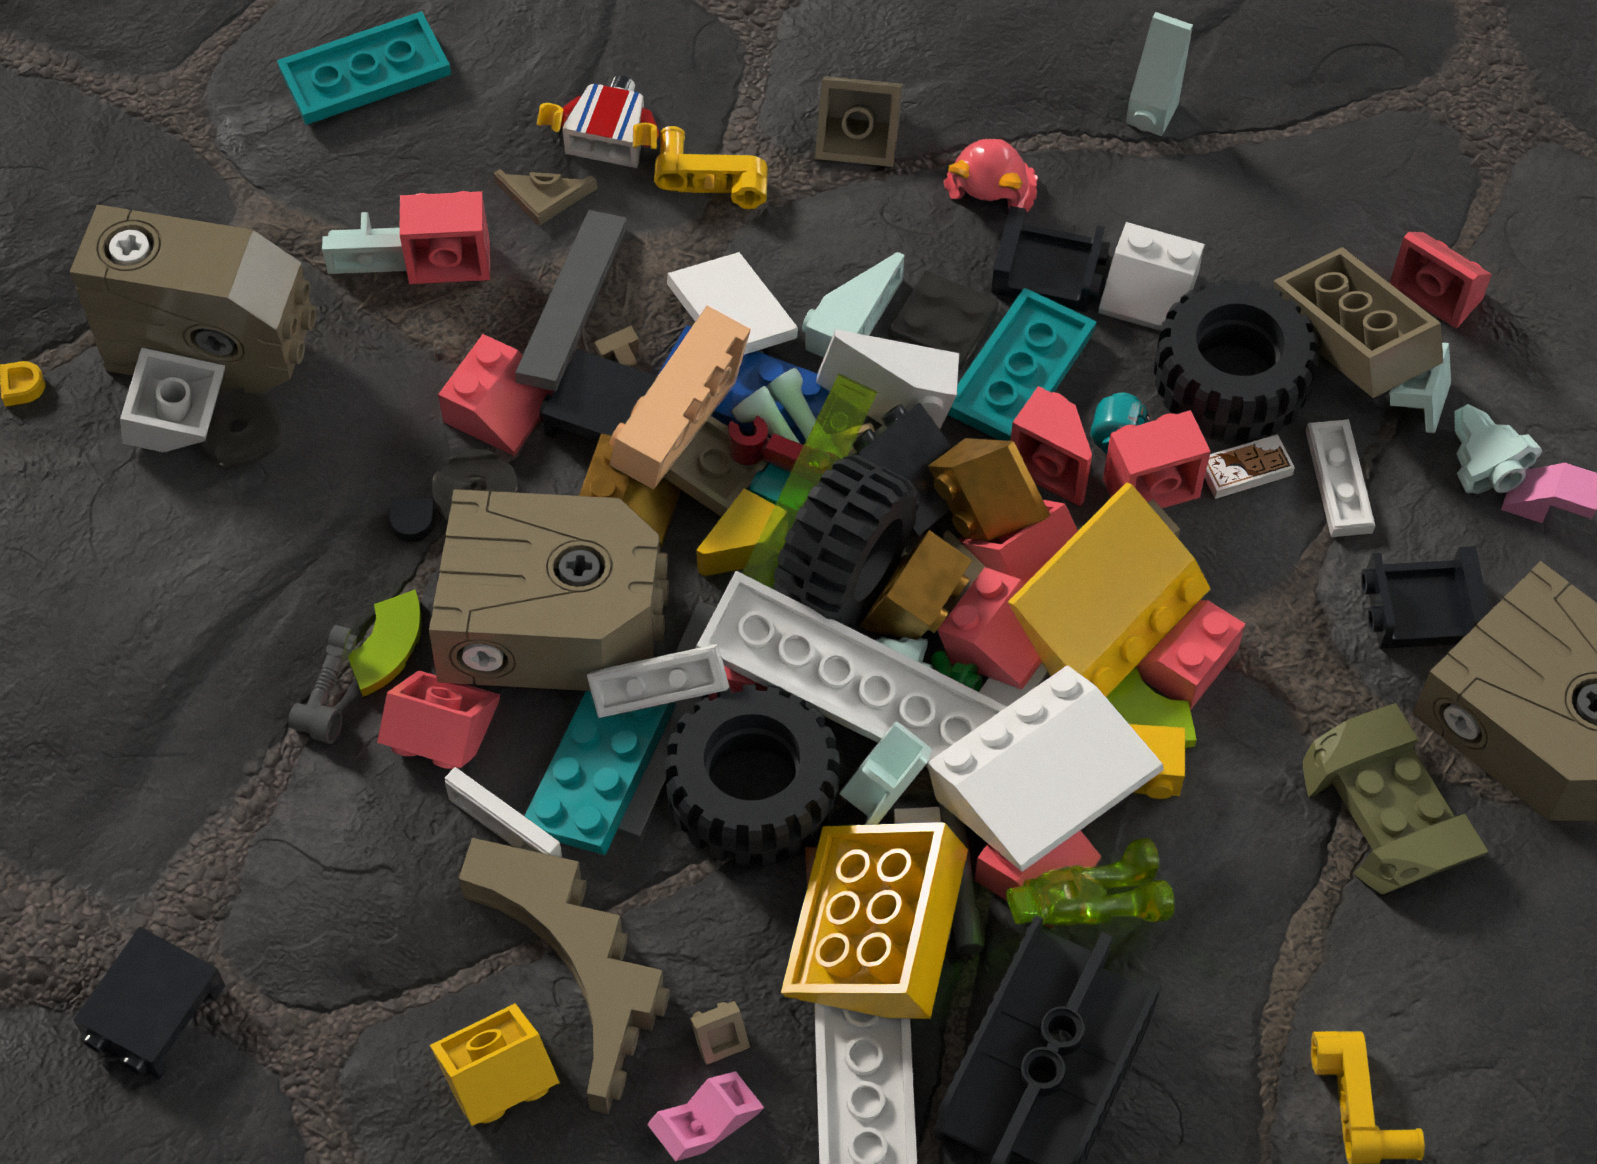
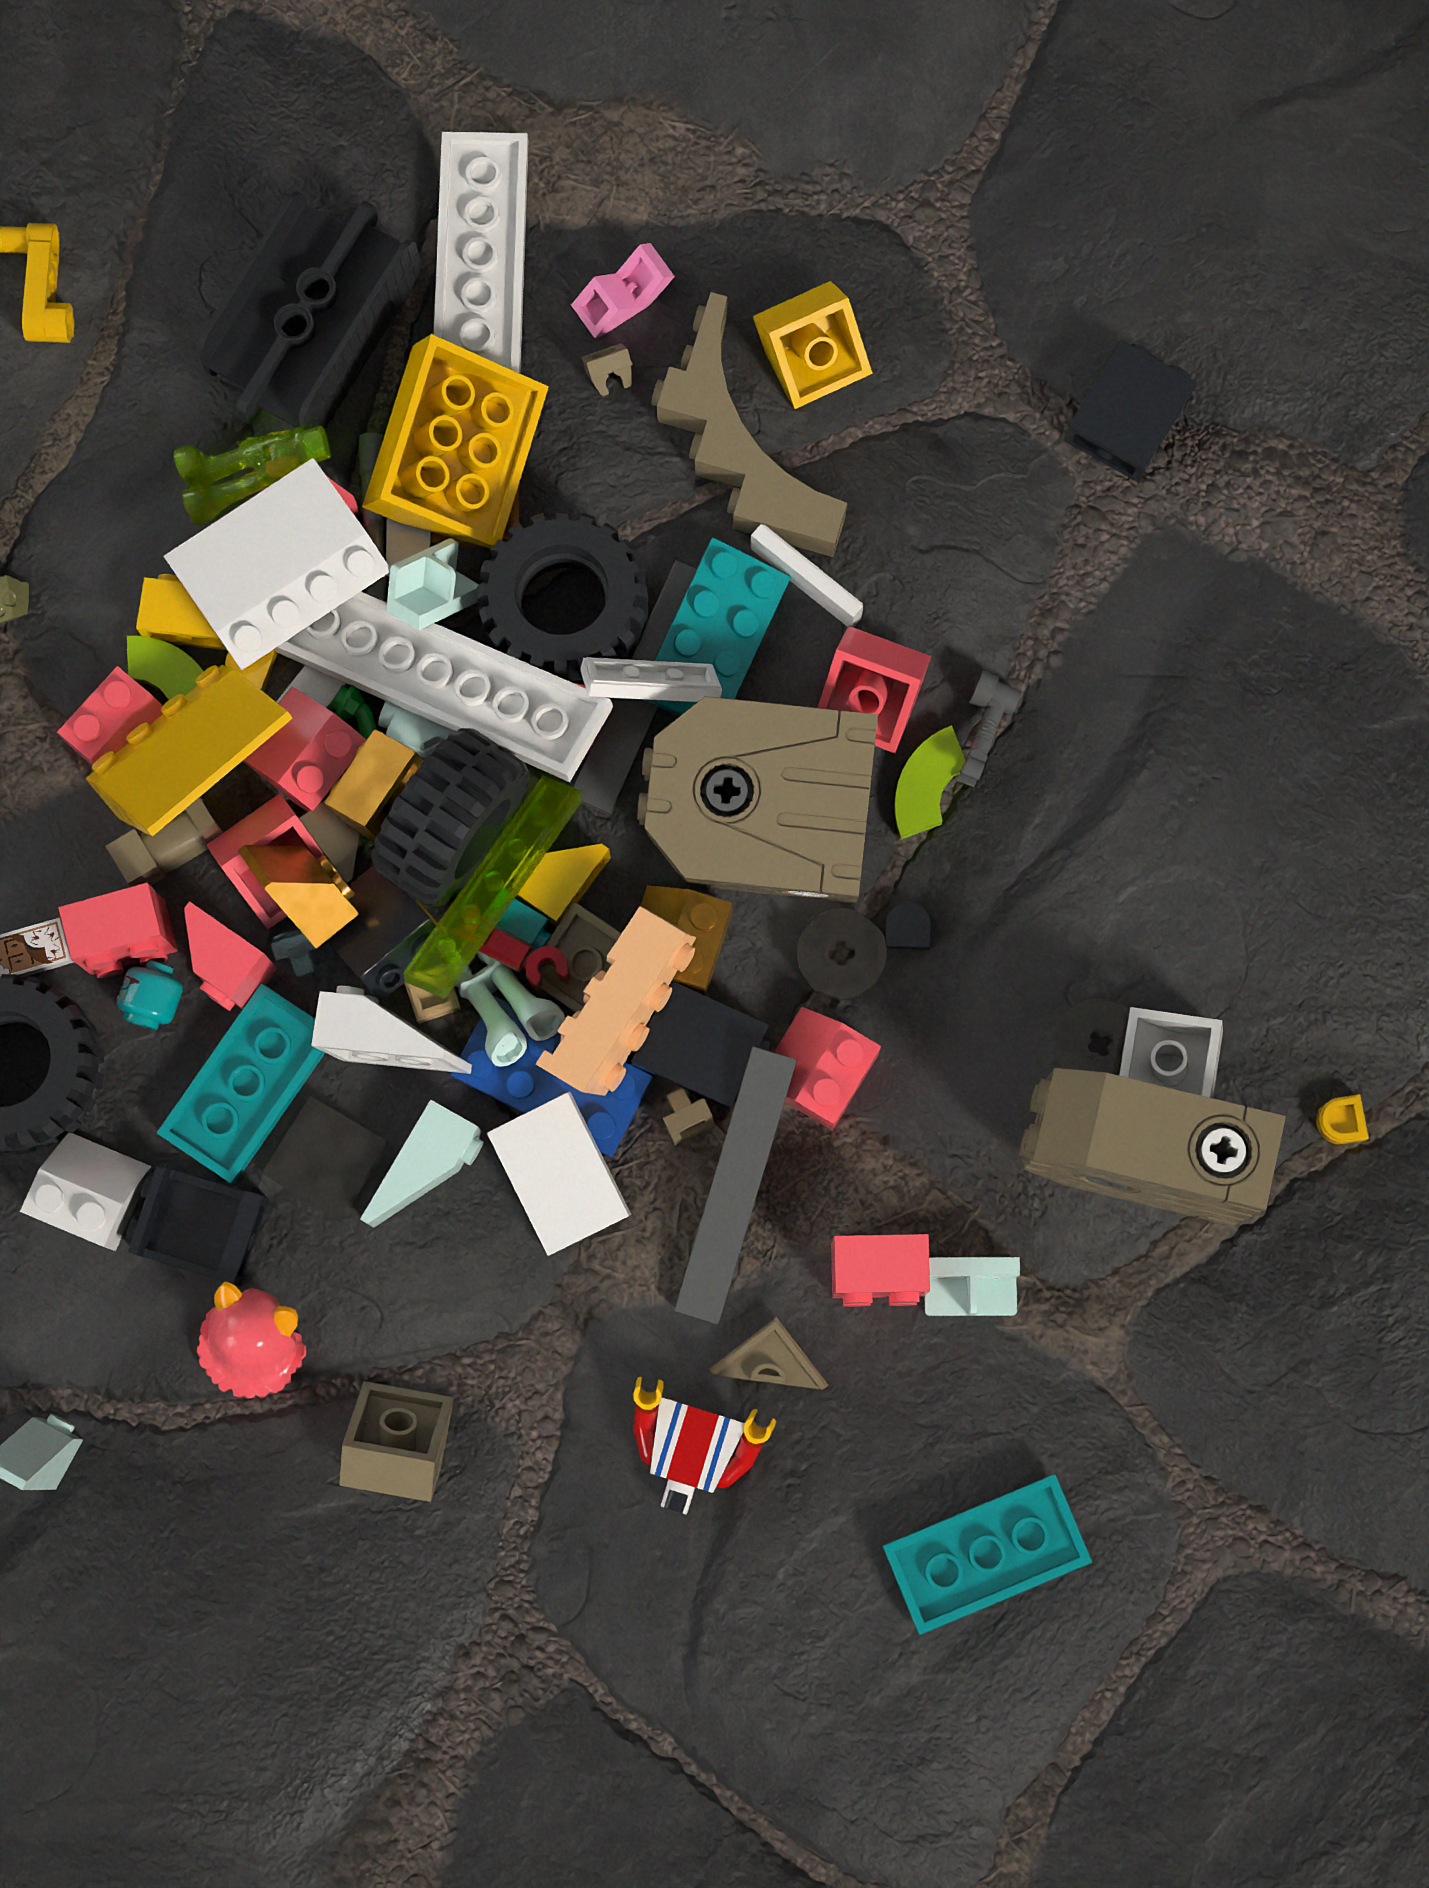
camera: 175 degrees left, 20 degrees up
(699, 173) = (533, 1358): yellow beam -> none

